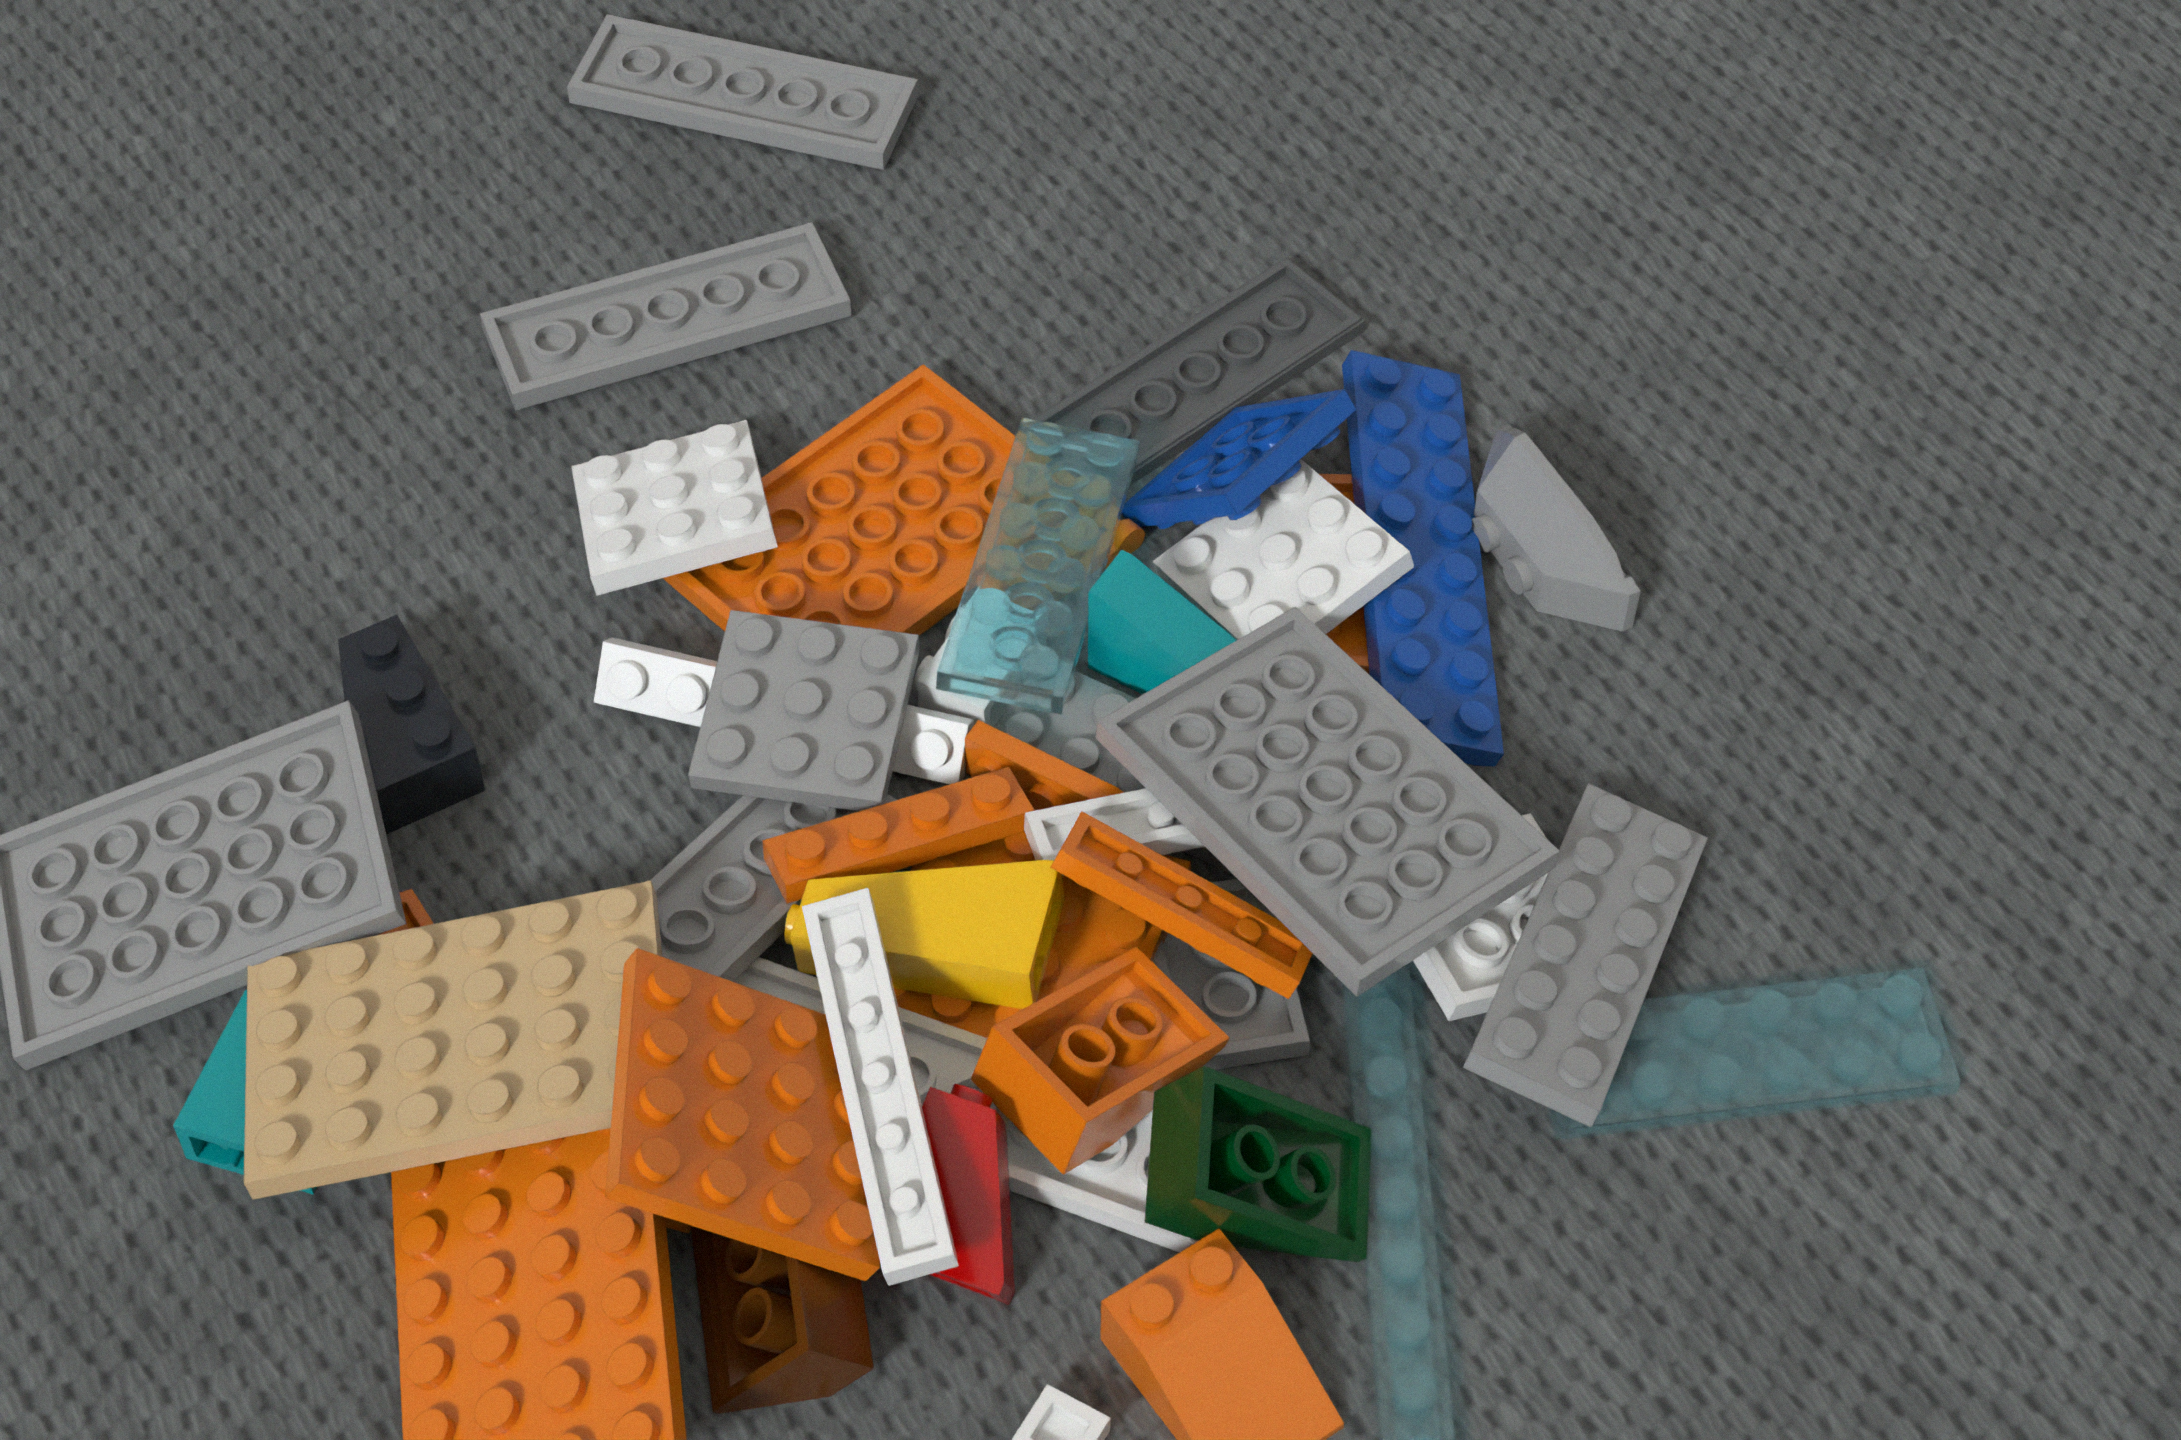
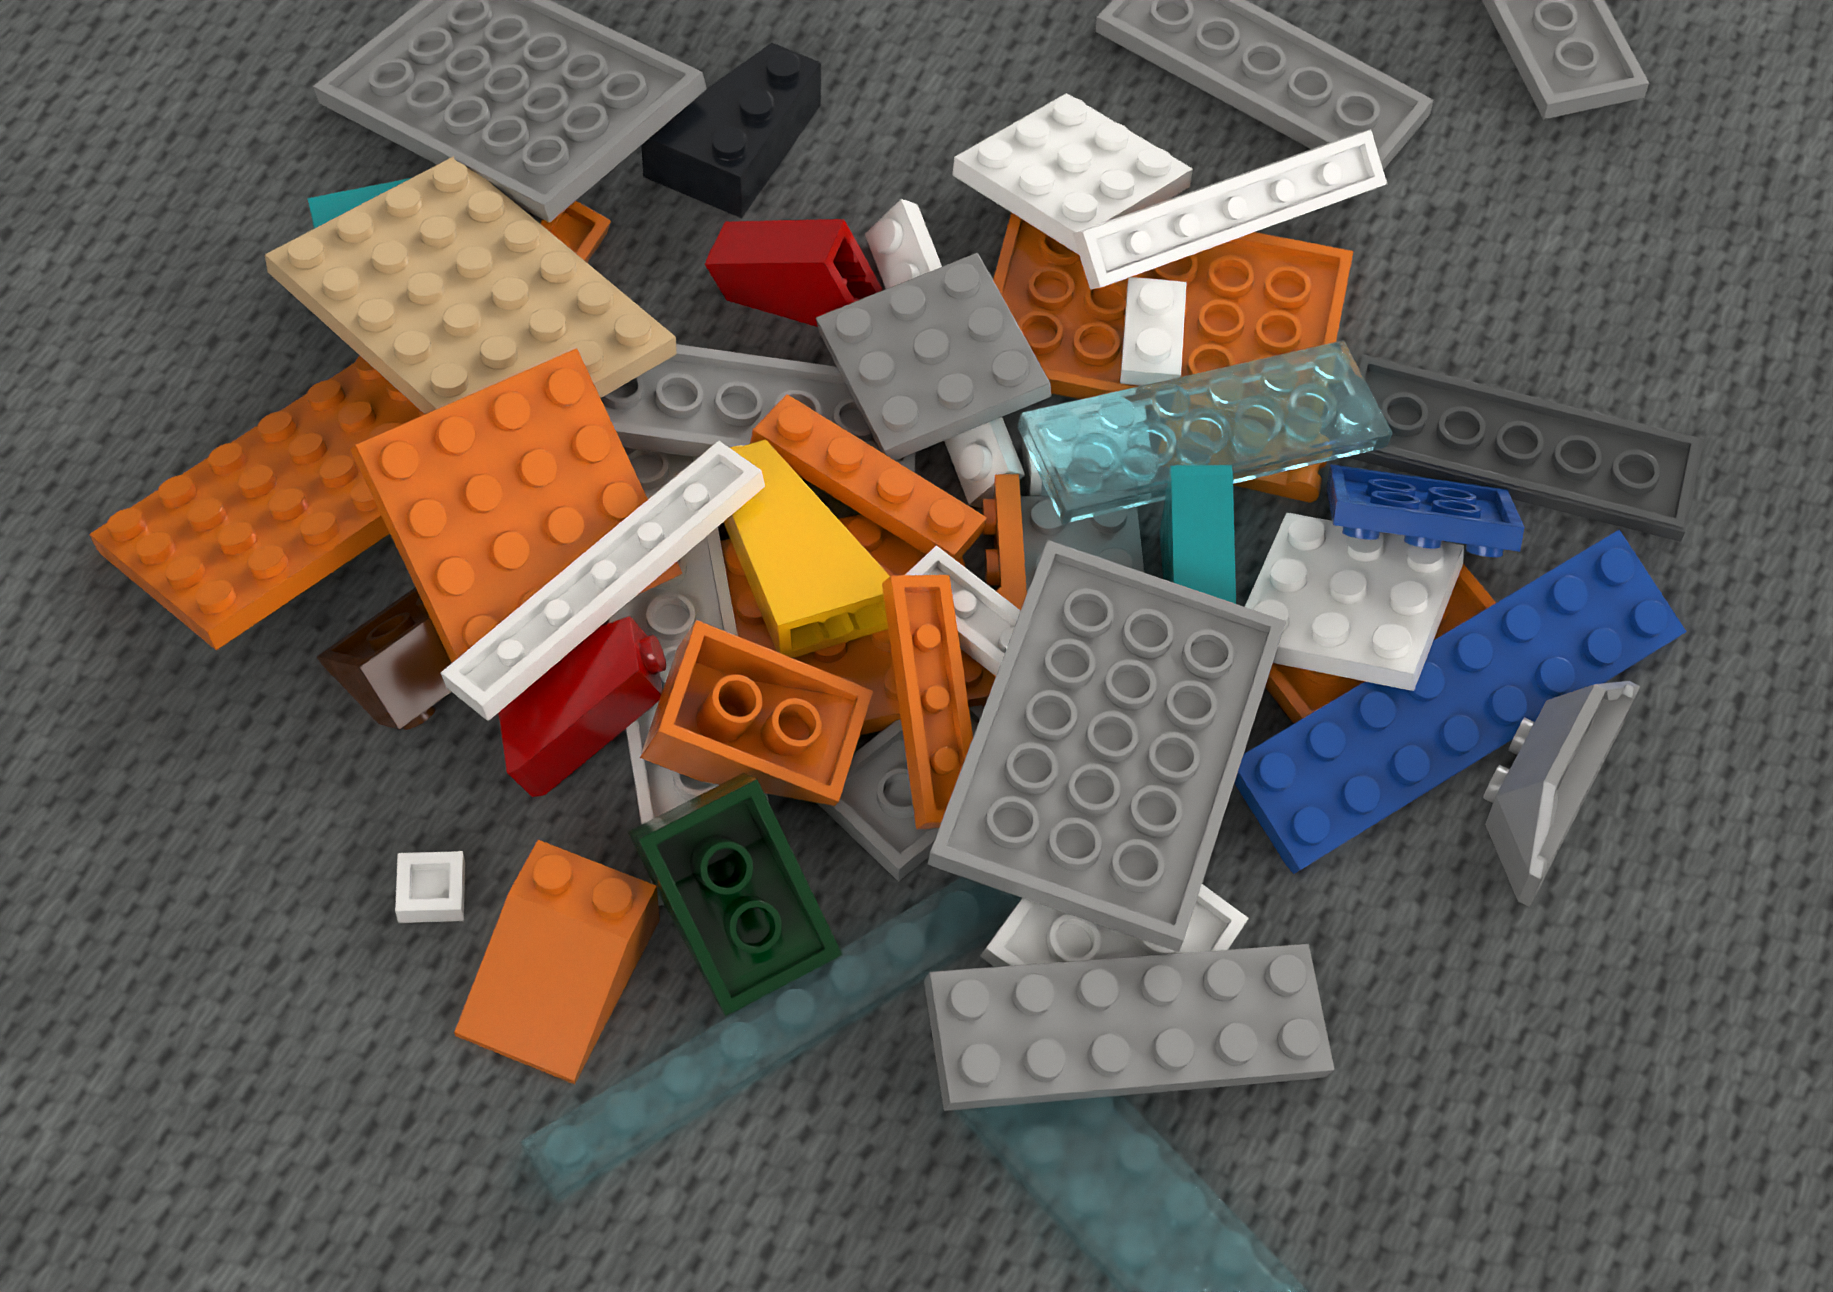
camera: 55 degrees right, 5 degrees up
(602, 772) = (791, 267): none -> red slope
(822, 417) = (1229, 209): none -> white plate
(899, 544) = (1153, 331): none -> white plate

